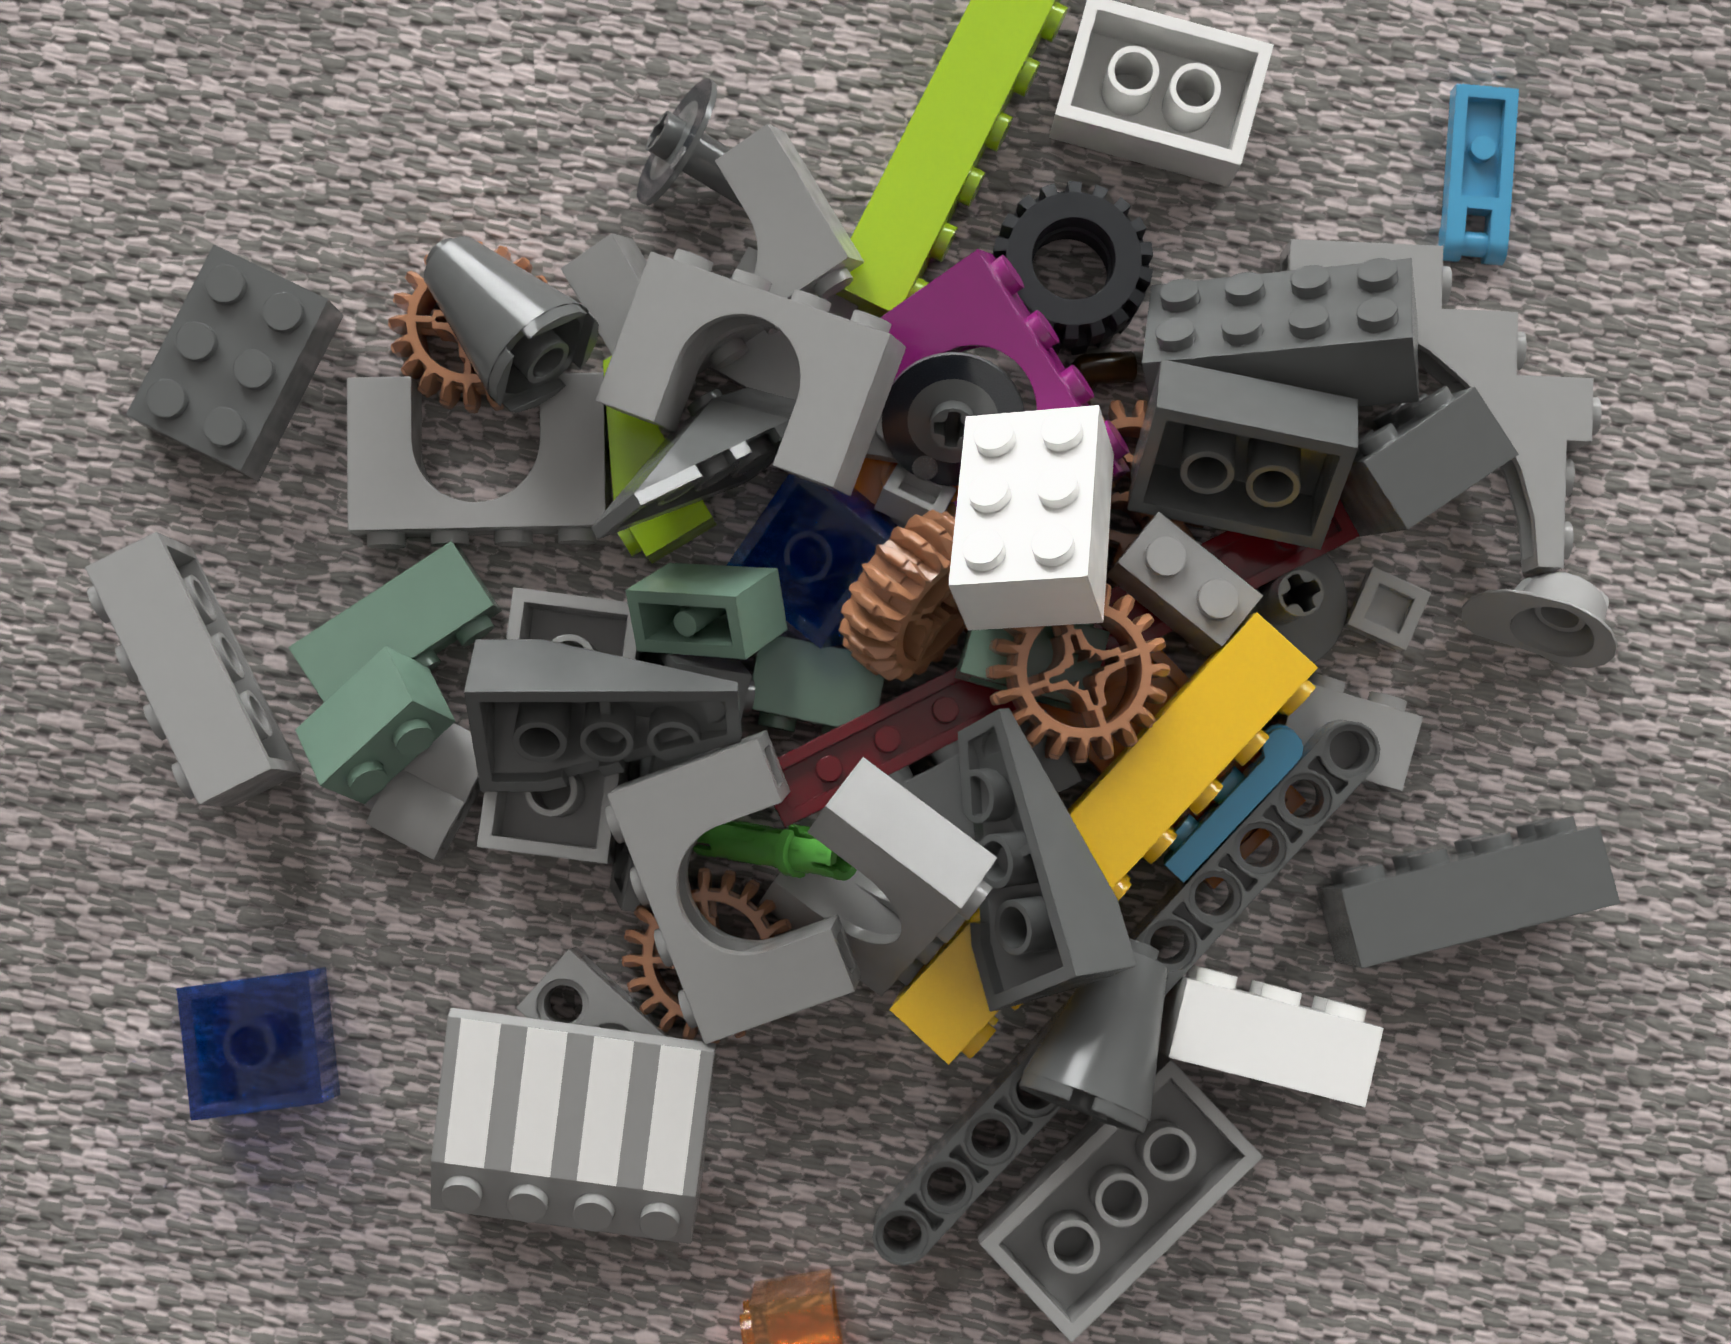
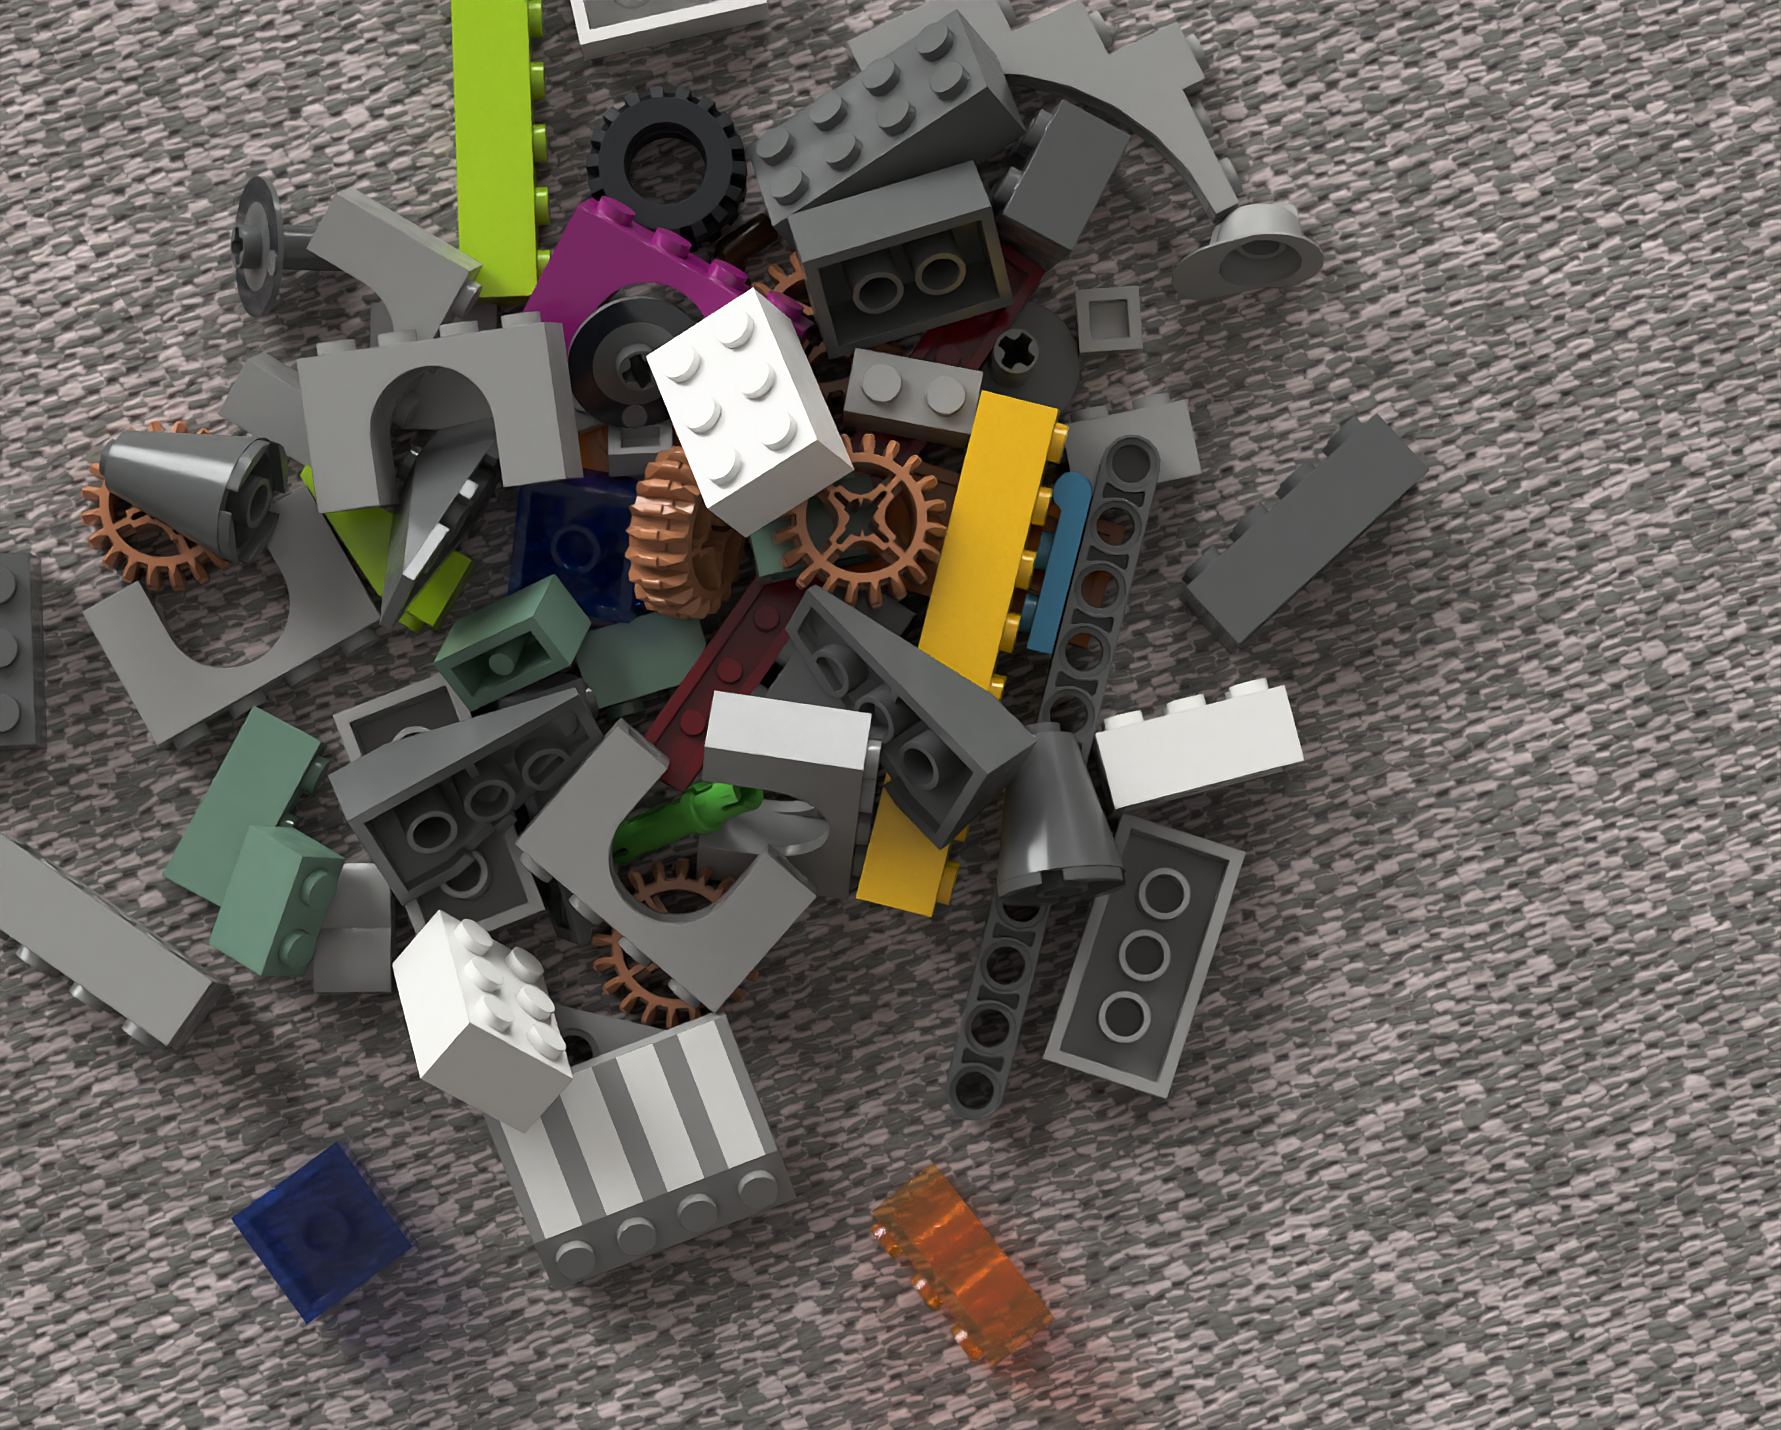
camera: 25 degrees left, 0 degrees up
(488, 941) = (482, 1021): none -> white brick

